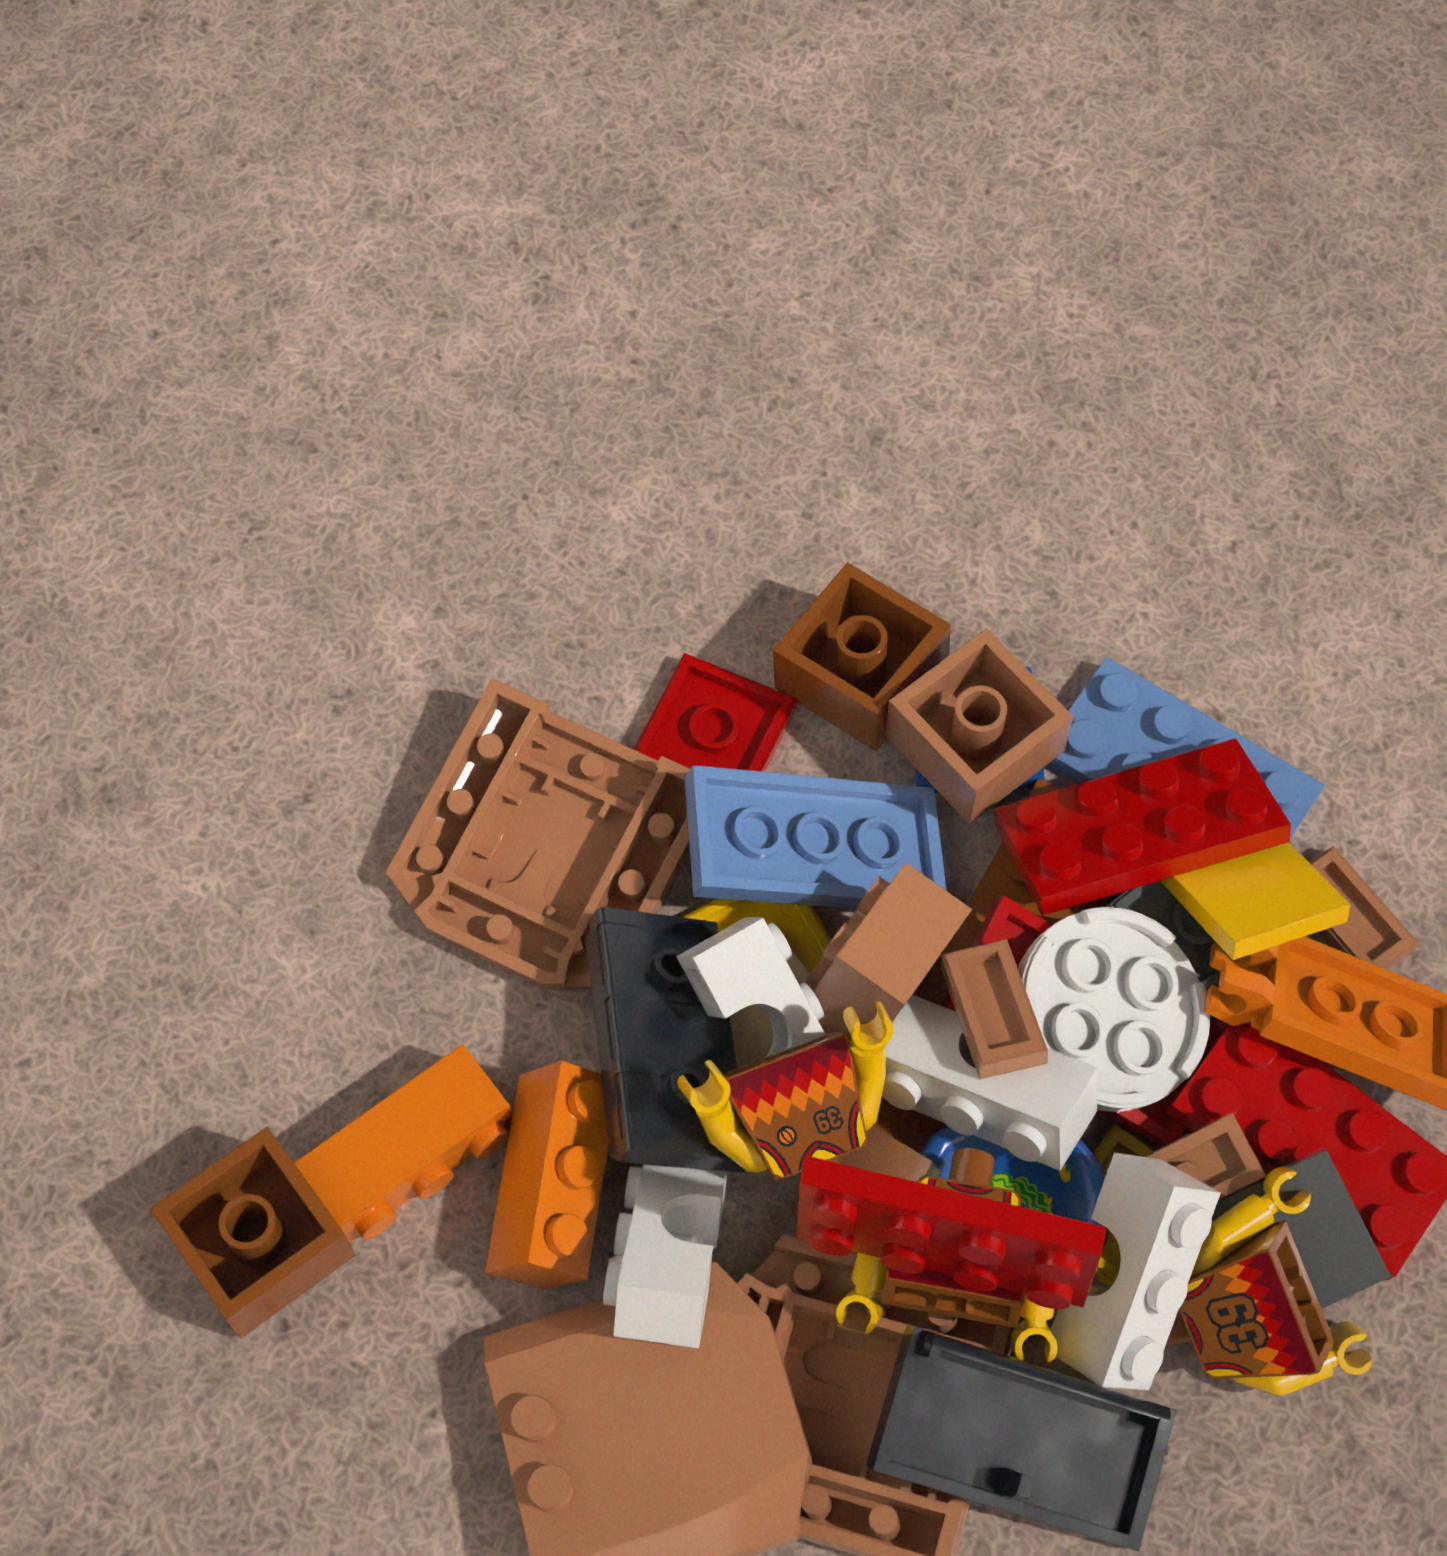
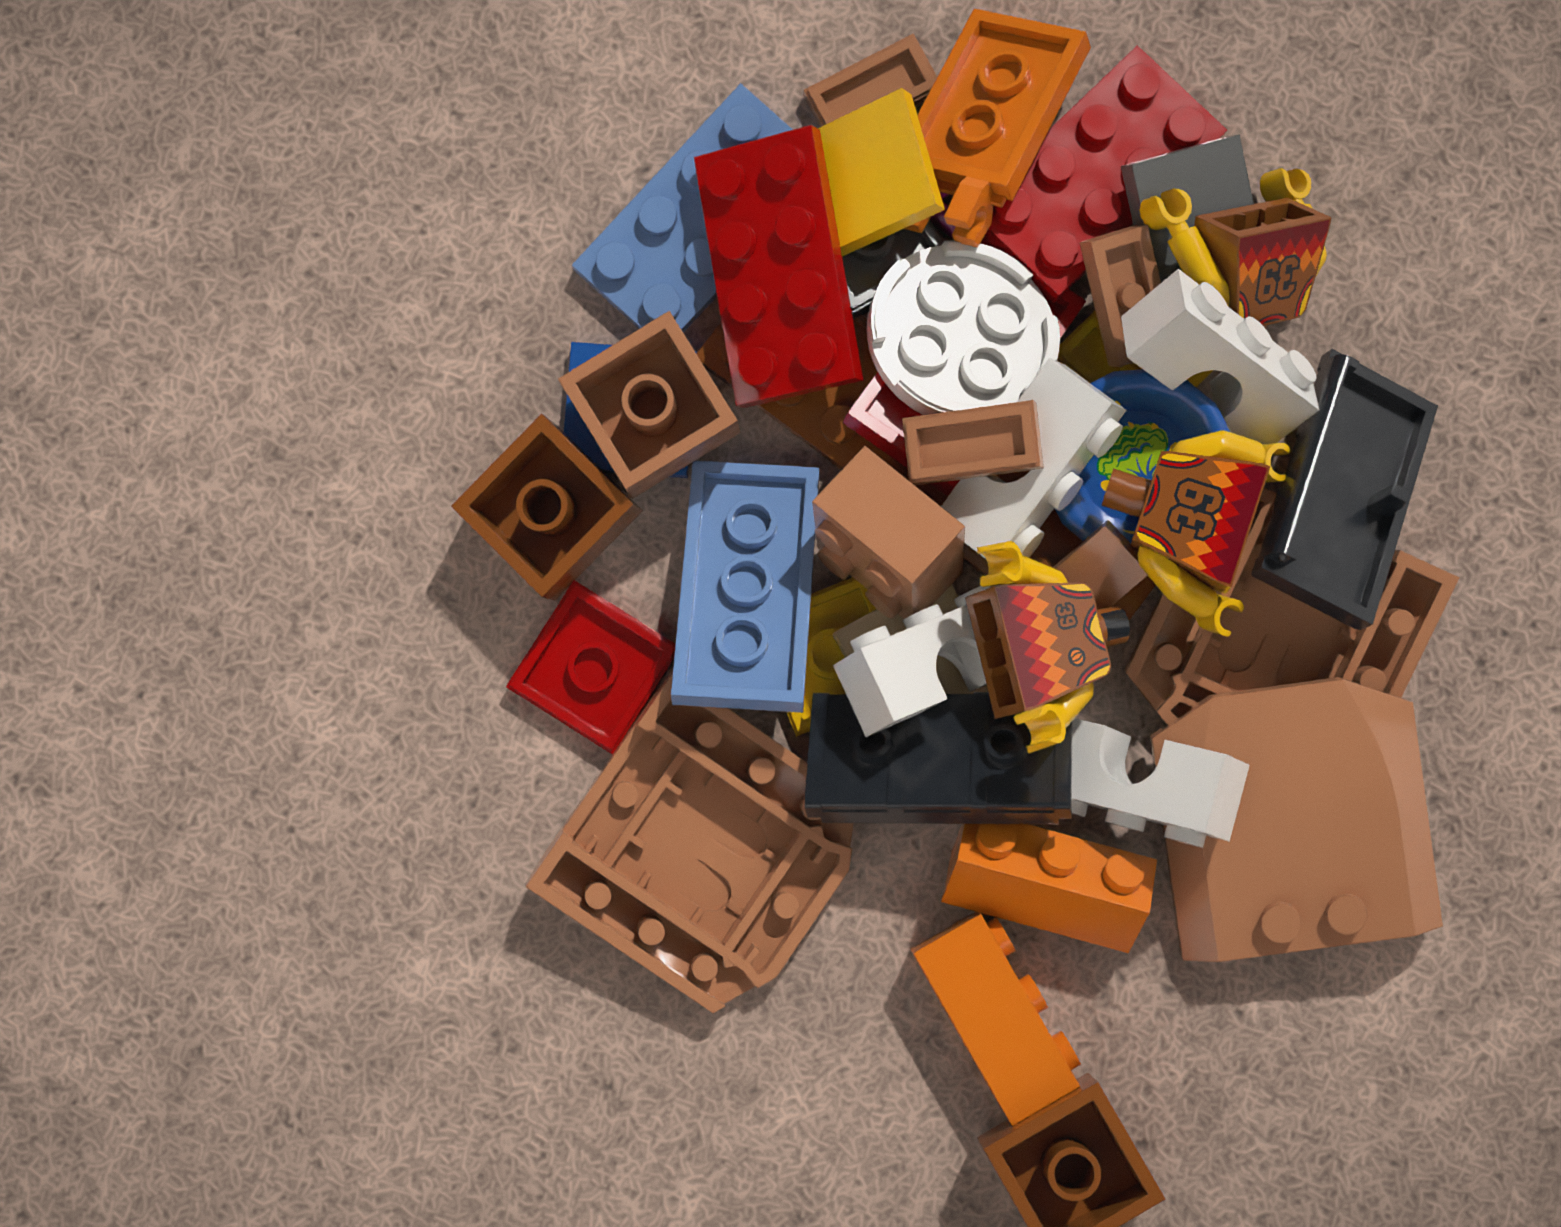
camera: 80 degrees left, 20 degrees up
(948, 1232) = (1238, 502): red plate -> none

